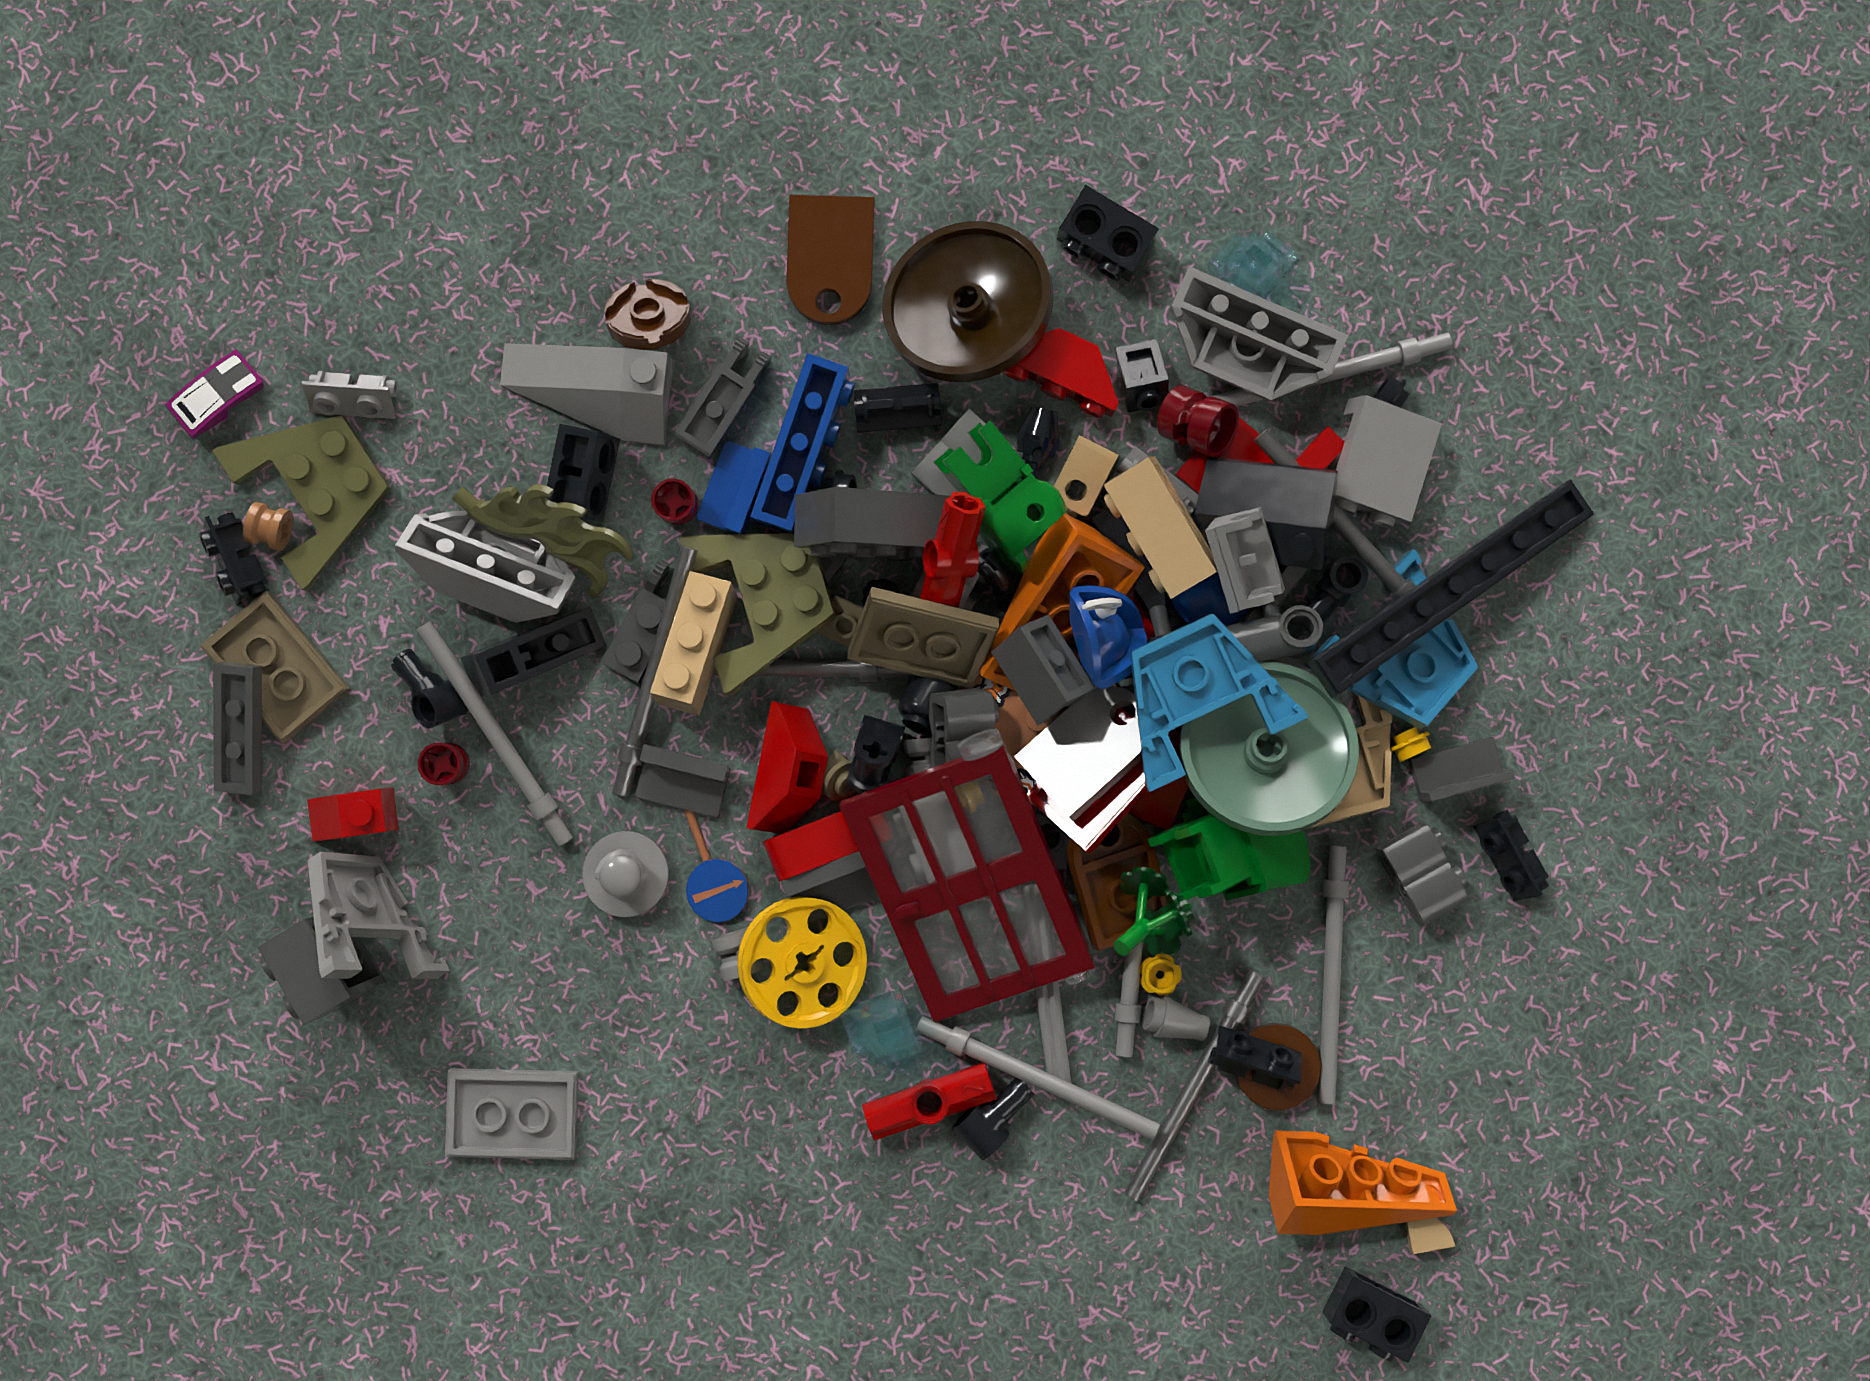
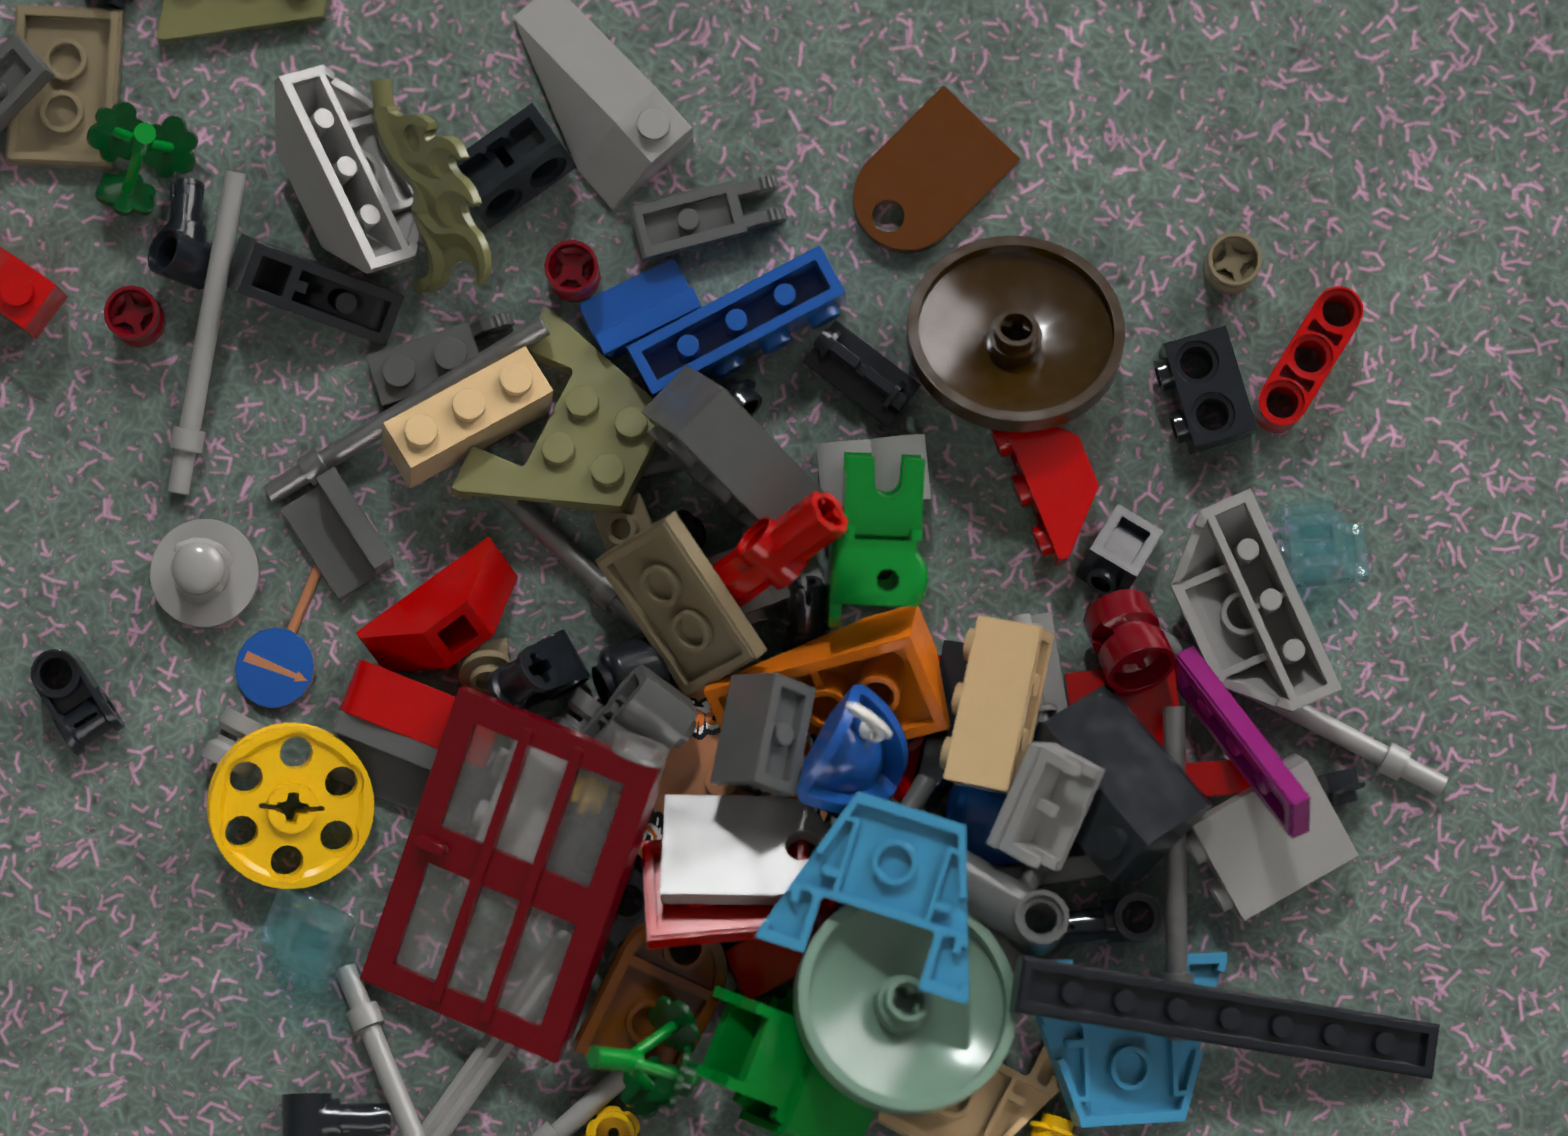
camera: 45 degrees right, 5 degrees down
(335, 664) = (159, 146): none -> dark green plant
(621, 1018) = (76, 701): none -> black piece
(647, 314) = (708, 76): reddish brown tile -> none
(901, 1111) = (253, 1032): red piece -> none
(1038, 437) = (963, 523): black piece -> none
(1057, 137) = (1236, 255): none -> dark tan wheel
(1091, 466) = (988, 588): tan torso -> none
(1151, 143) = (1323, 339): none -> red beam
(1322, 418) = (1243, 743): none -> magenta tile

